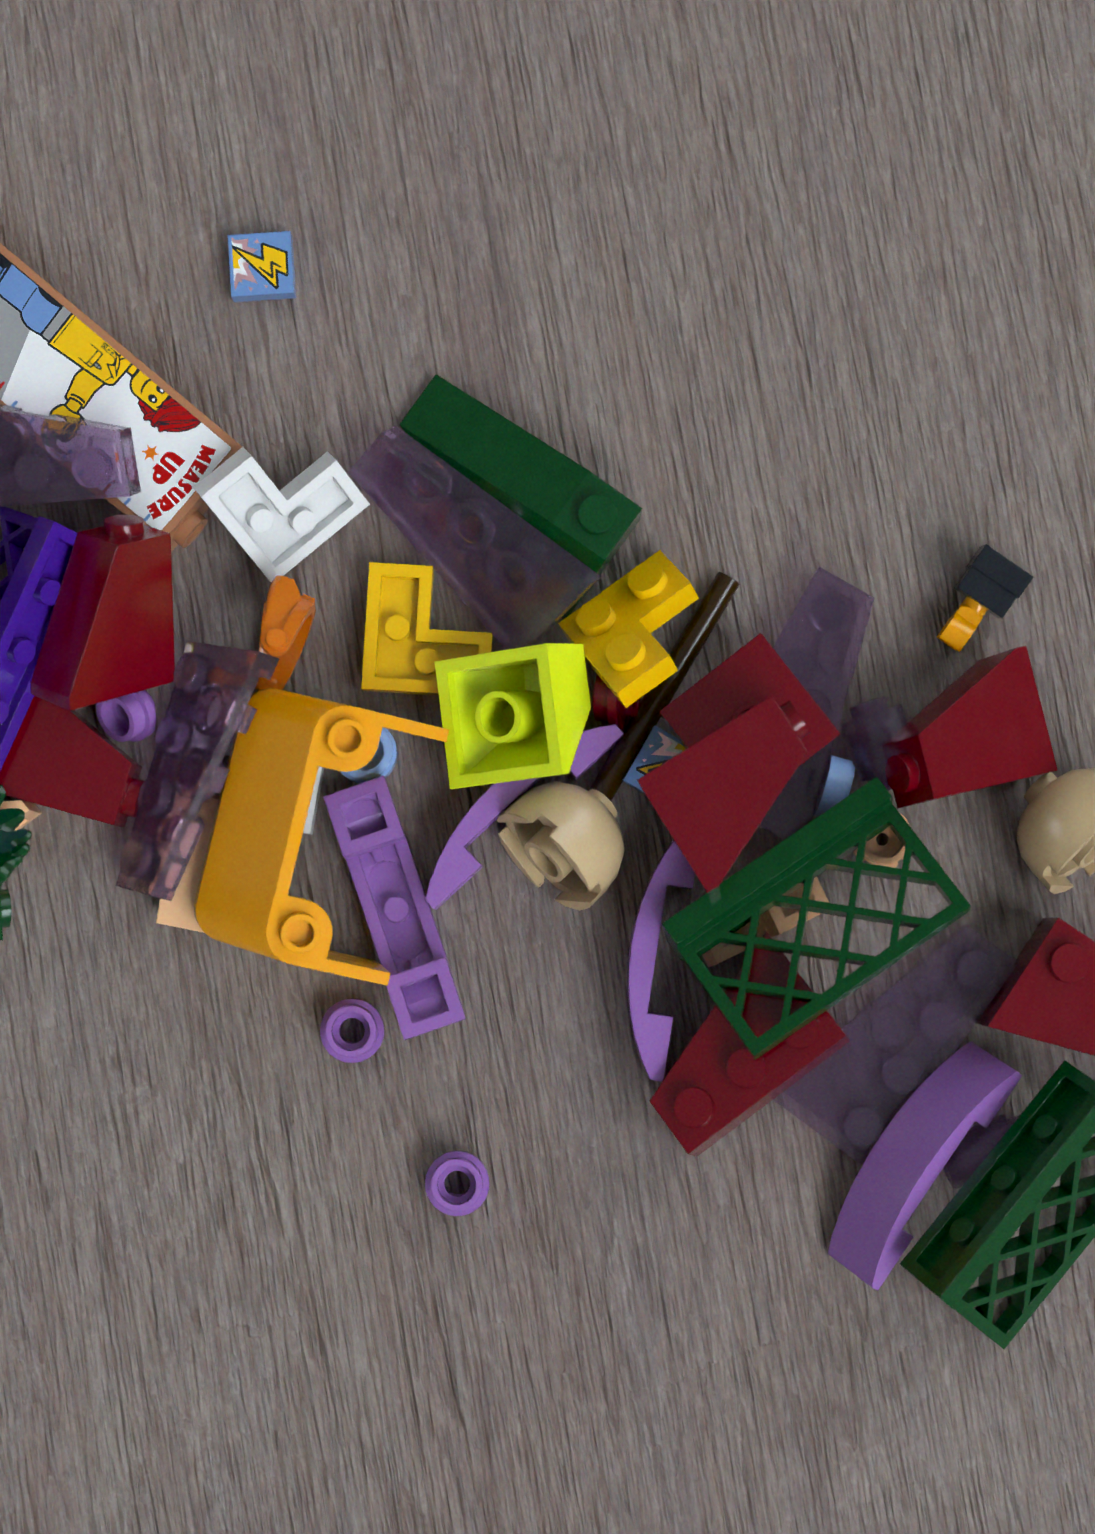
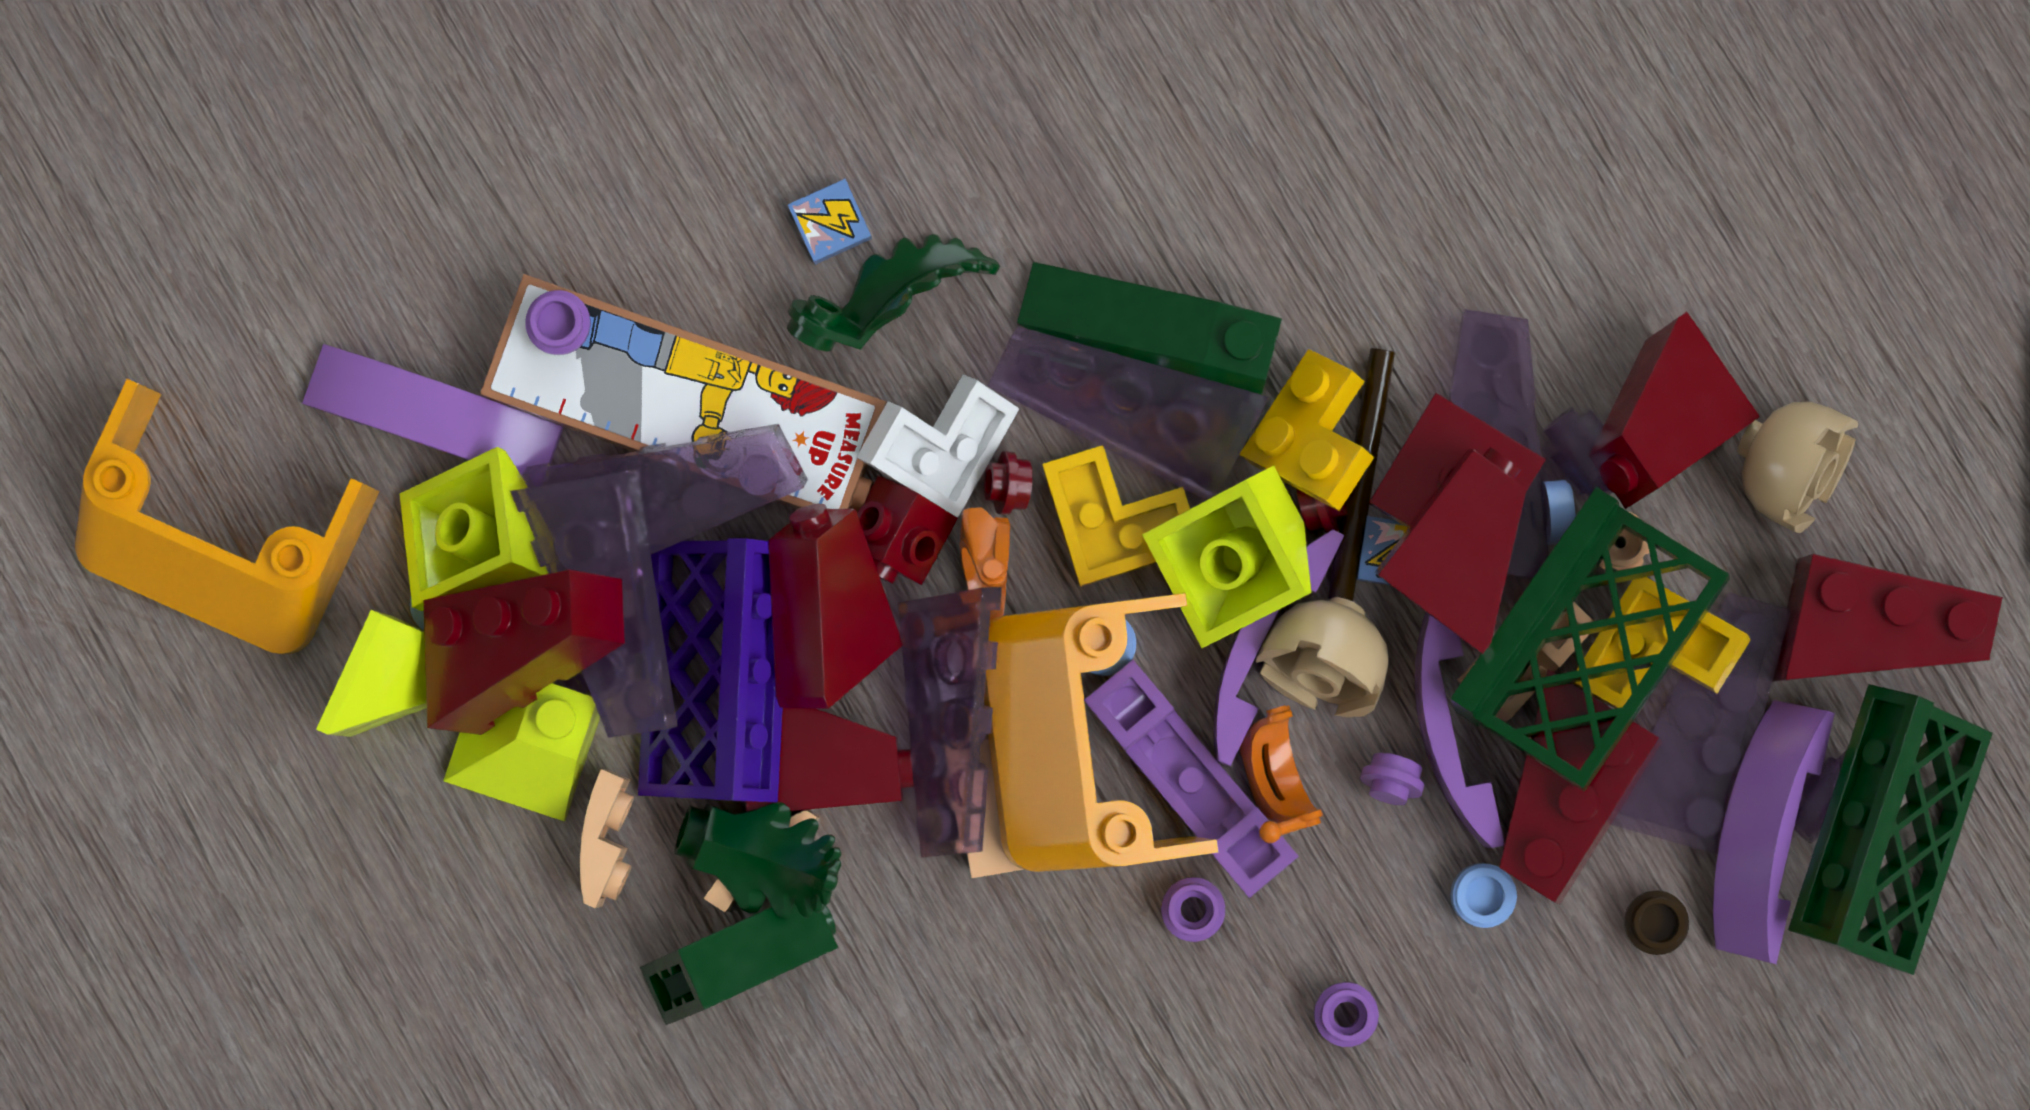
camera: 20 degrees left, 0 degrees up
(128, 716) = (872, 696): medium lavender plate -> none
(213, 575) = (903, 530): none -> dark red brick
(282, 348) = (883, 292): none -> dark green plant
(332, 569) = (1008, 483): none -> dark red plate
(482, 972) = (1294, 808): none -> orange helmet
(584, 979) = (1393, 778): none -> medium lavender plate
(628, 1121) = (1483, 895): none -> light blue tile
(780, 1208) = (1656, 922): none -> dark brown plate
(919, 976) = (1704, 658): none -> yellow plate
(990, 586) = (1630, 266): black piece -> none

